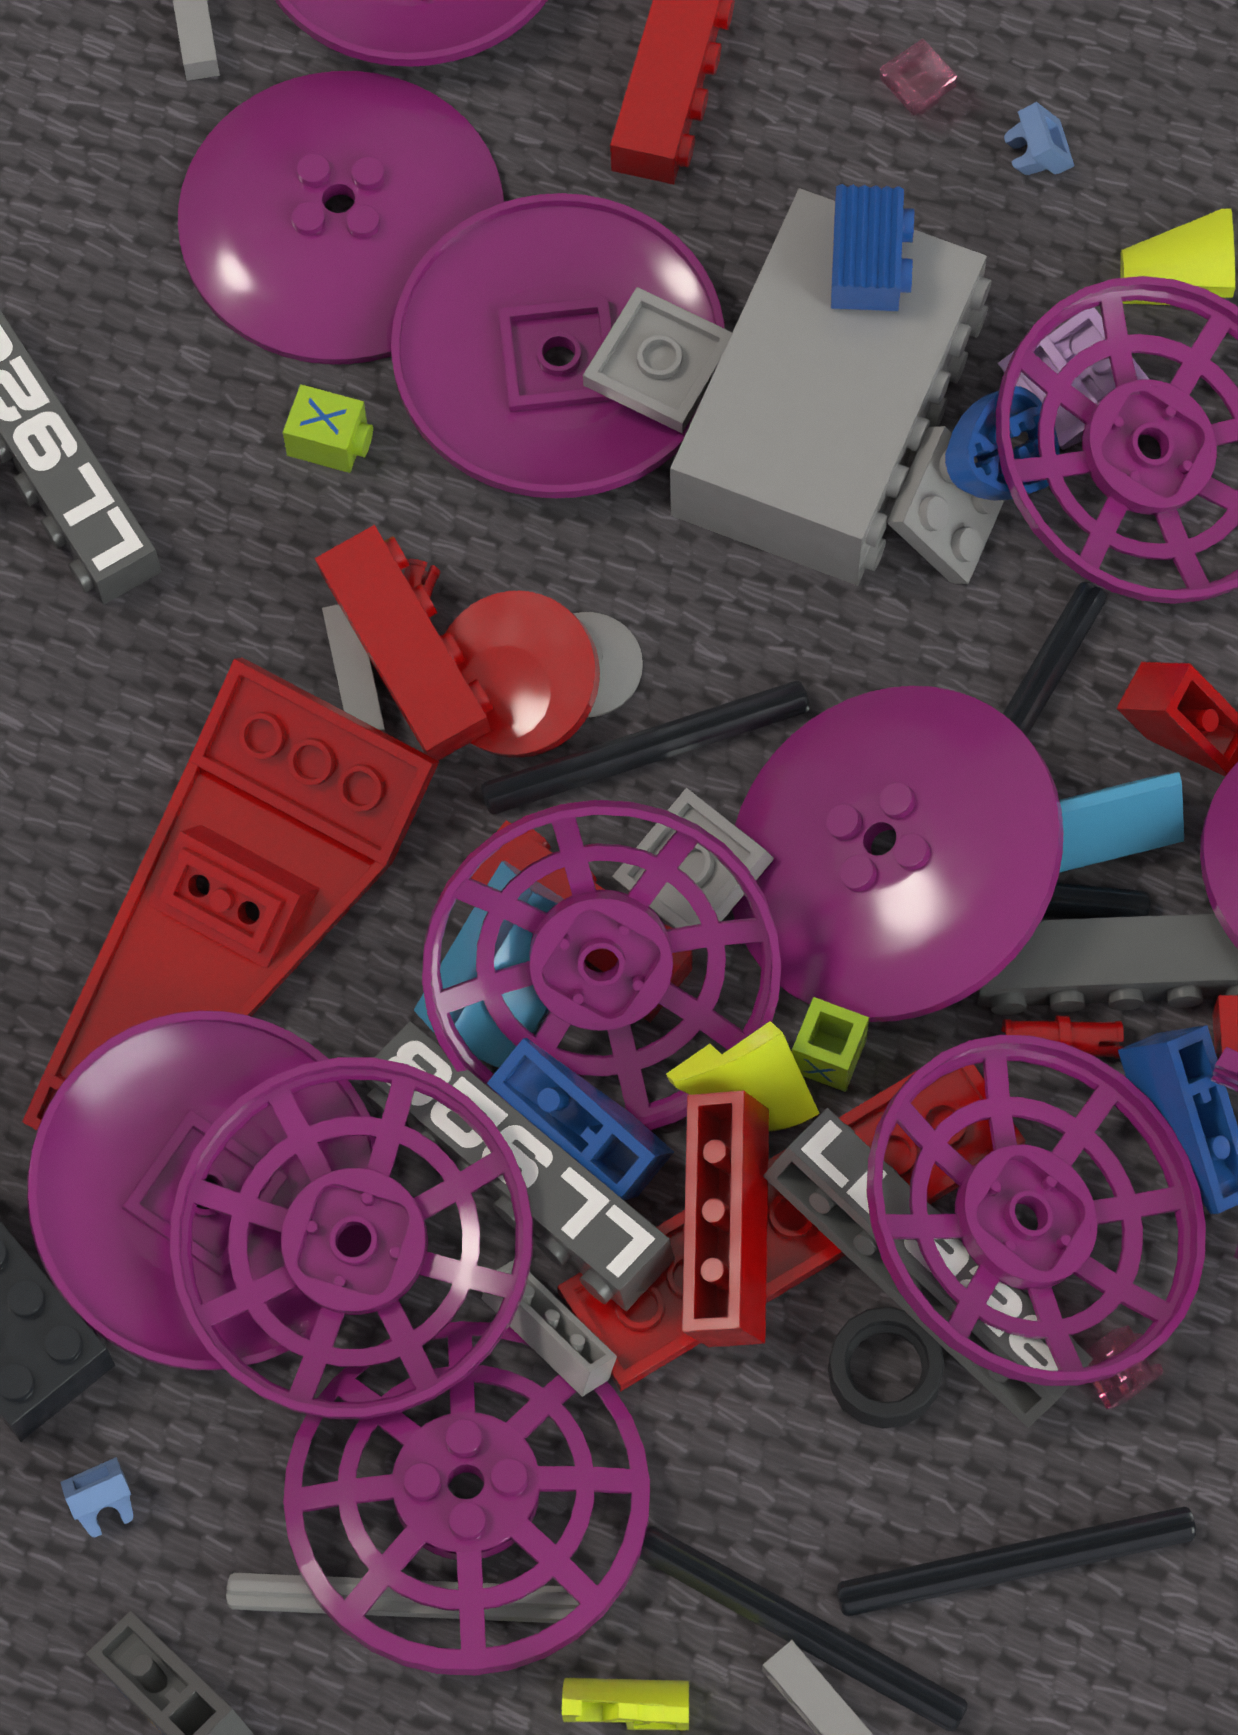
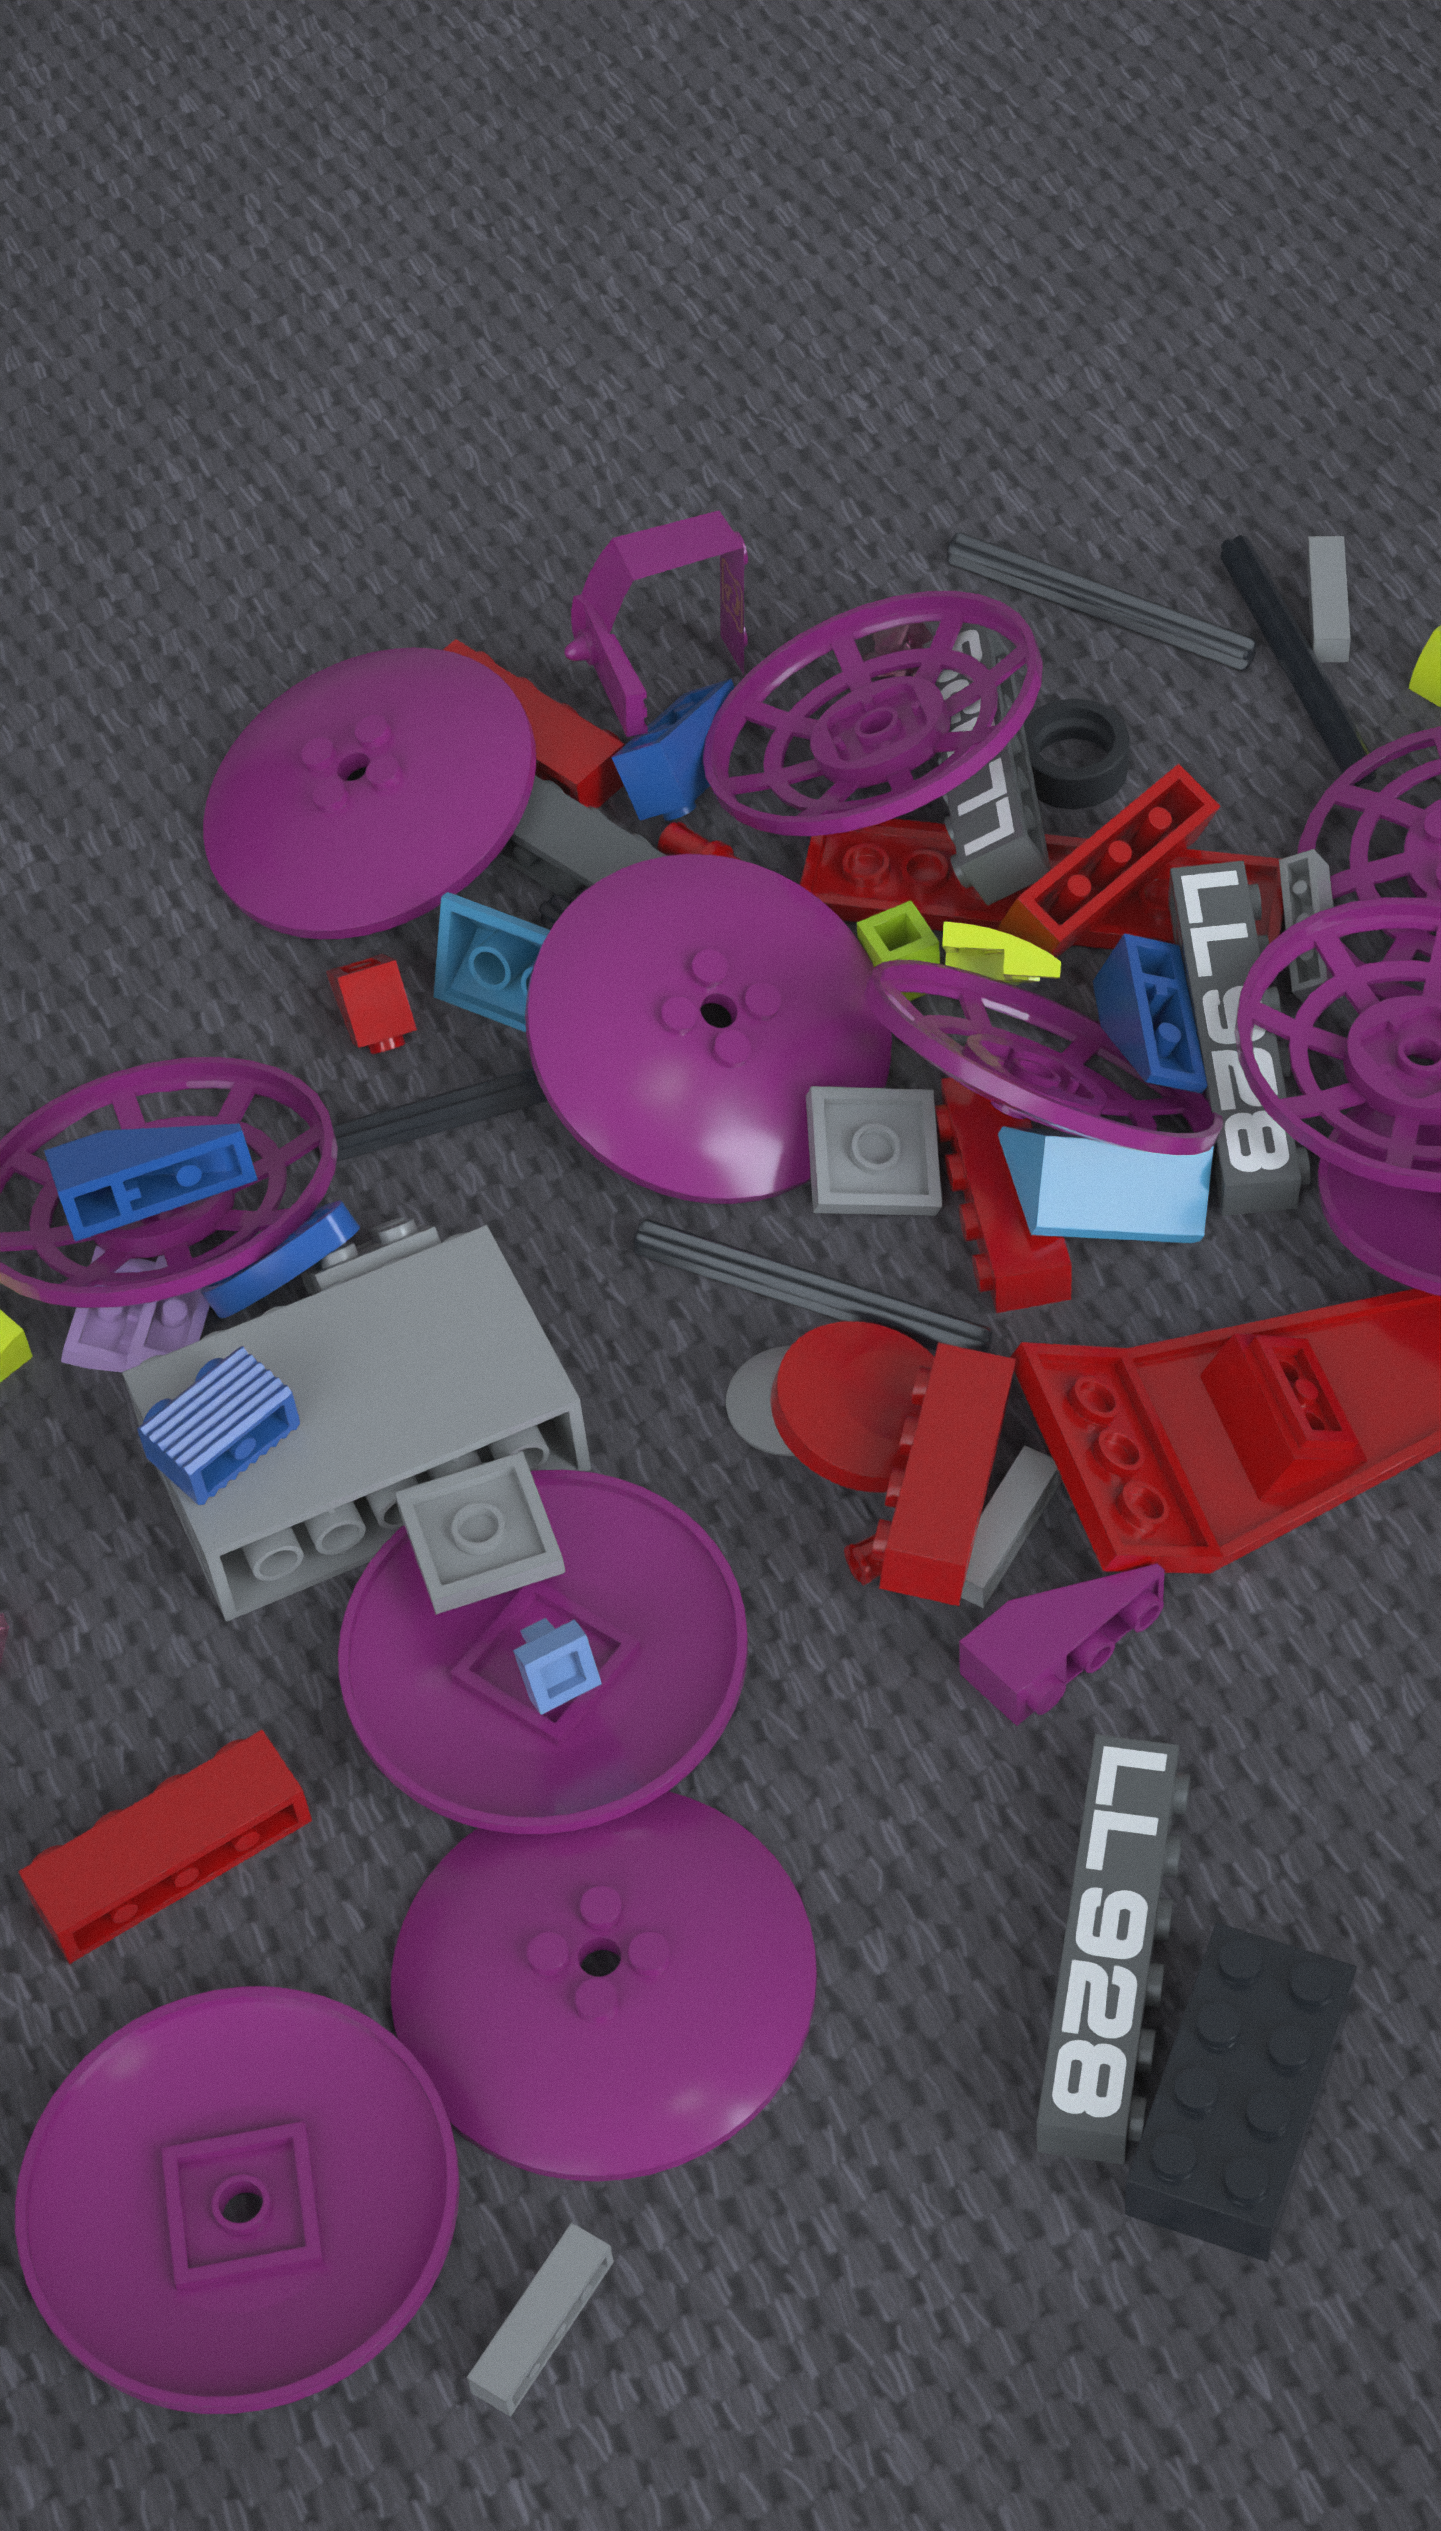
camera: 135 degrees left, 15 degrees down
(254, 606) = (1046, 1639): none -> magenta slope
(327, 429) = (824, 1753): lime brick -> none
(525, 313) = (555, 1664): none -> medium blue tile
(1154, 383) = (144, 1172): none -> blue slope

